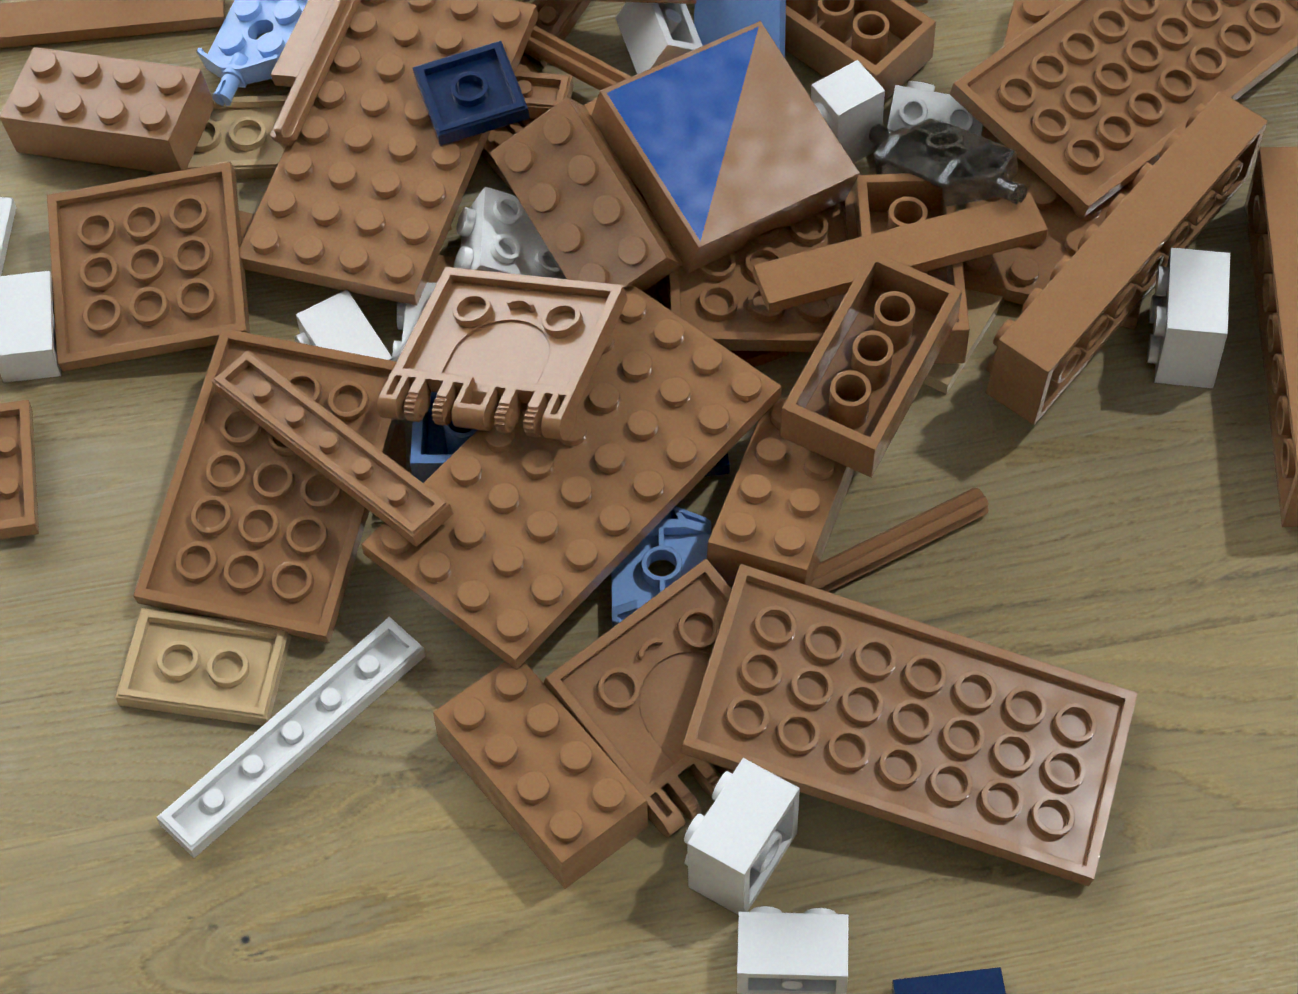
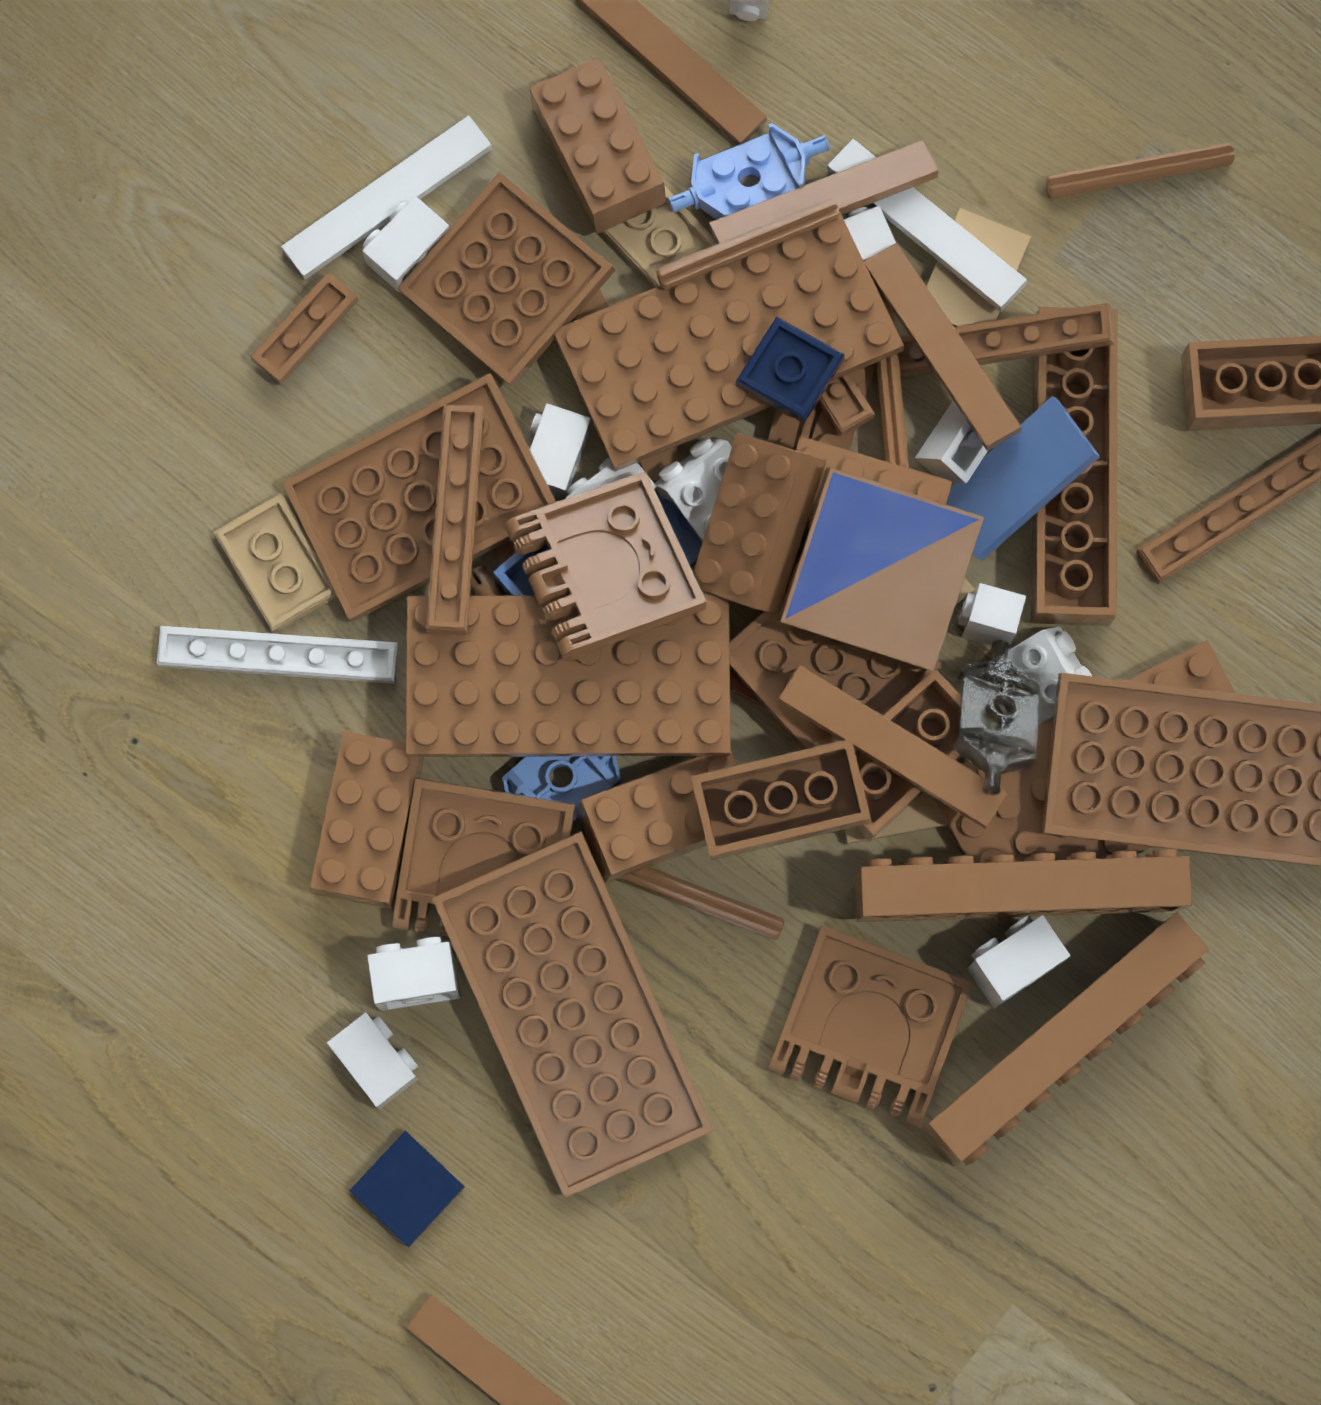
camera: 45 degrees right, 20 degrees up
(1143, 481) = (875, 1019): none -> medium nougat hinge

